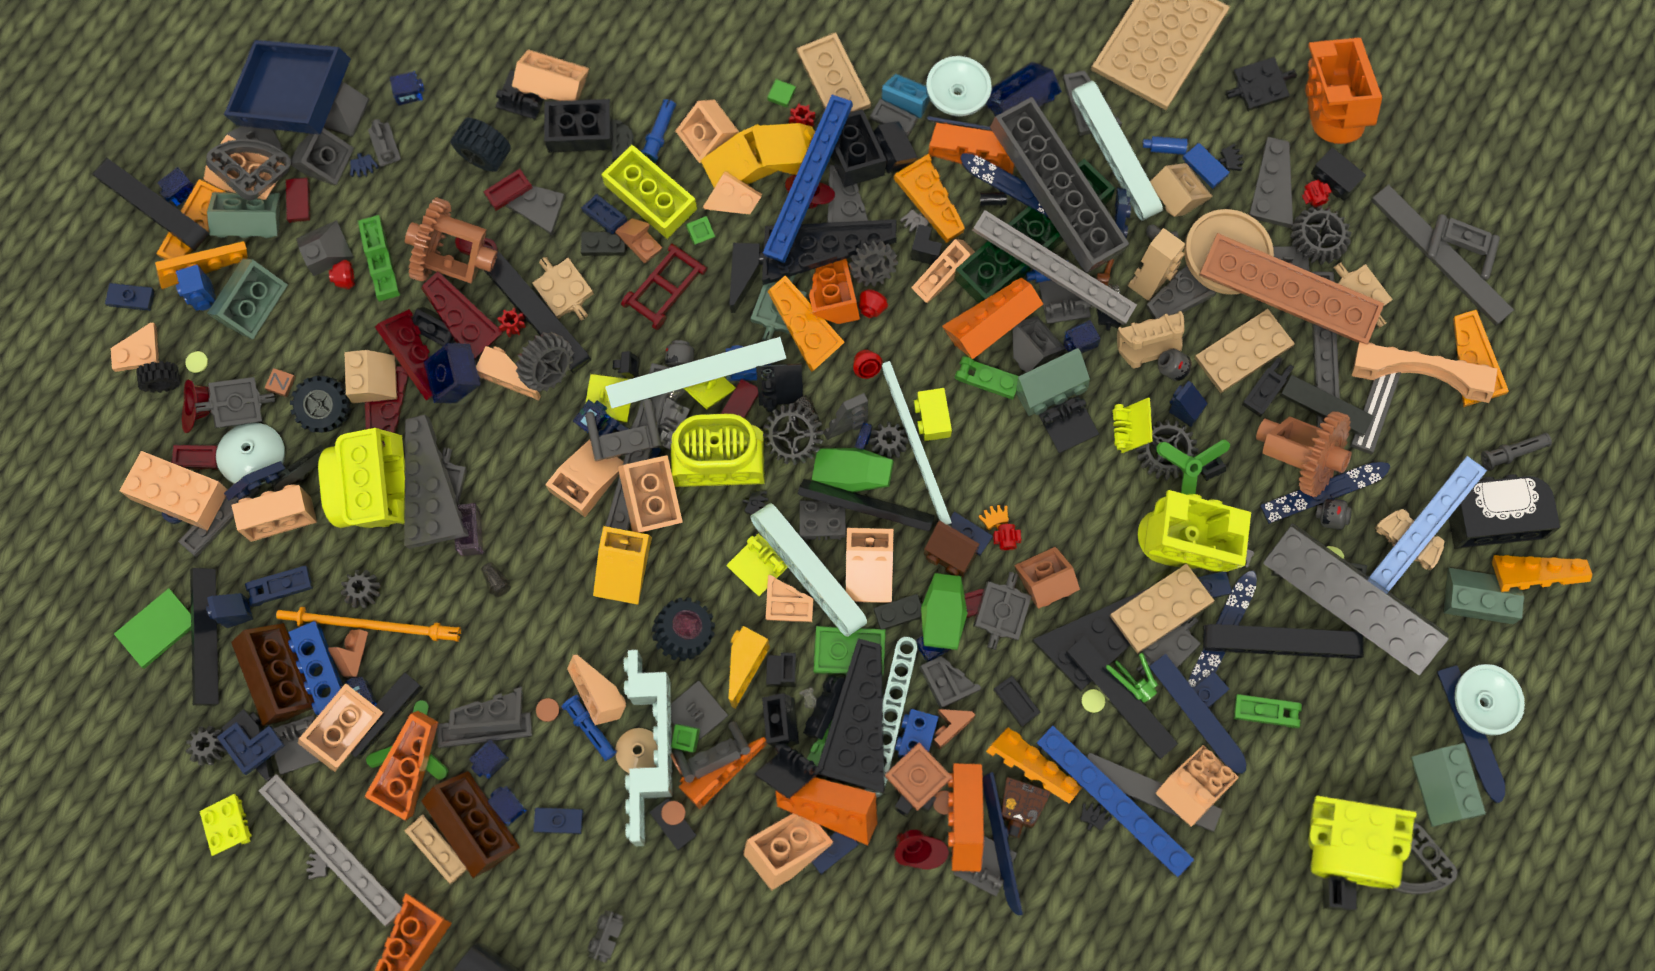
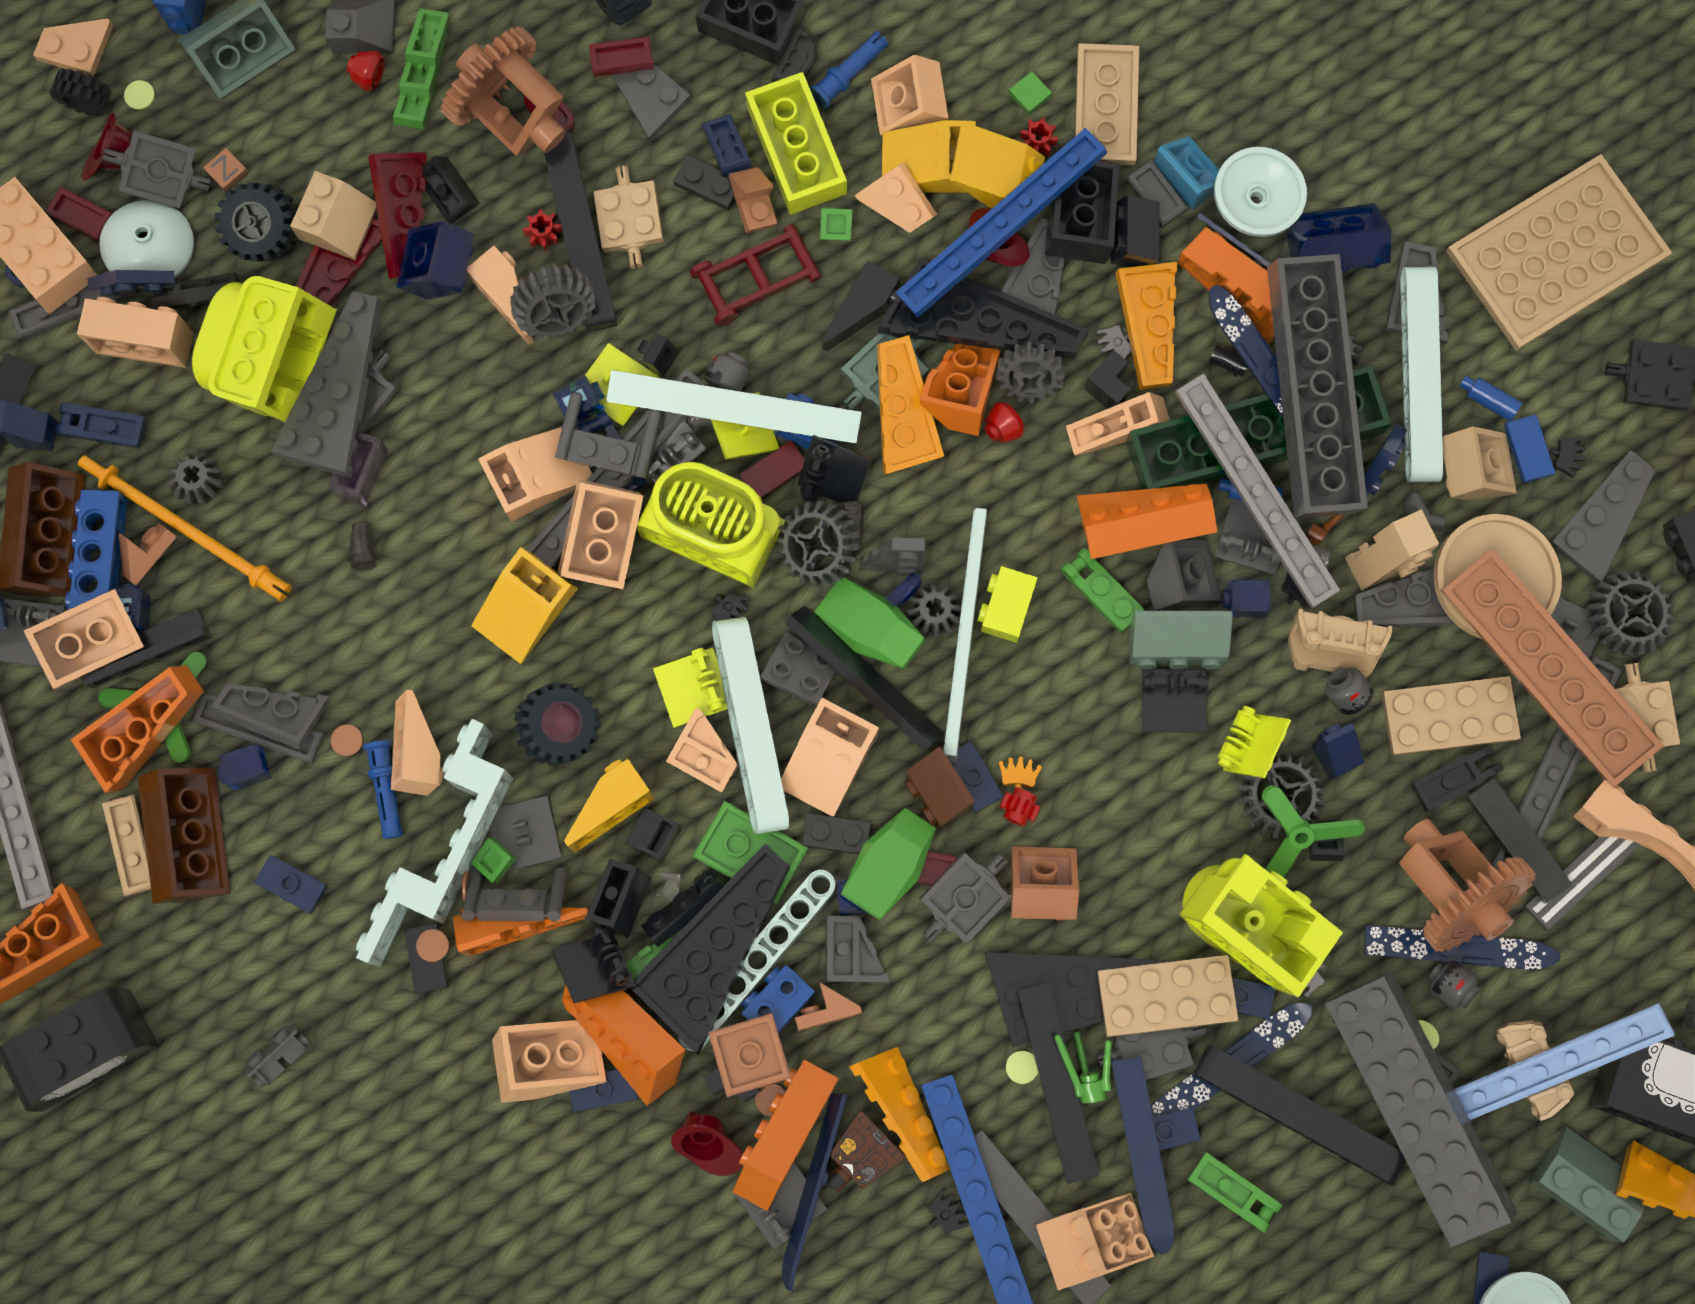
camera: 25 degrees right, 5 degrees up
(460, 316) = (482, 192): dark red wing -> none
(506, 805) = (237, 834): clear blue brick -> none
(625, 749) = (415, 835): tan dish -> none
(867, 364) = (957, 498): red cone -> none
(1016, 701) = (925, 1019): black tile -> none
(1316, 193) = (1654, 556): red gear -> none

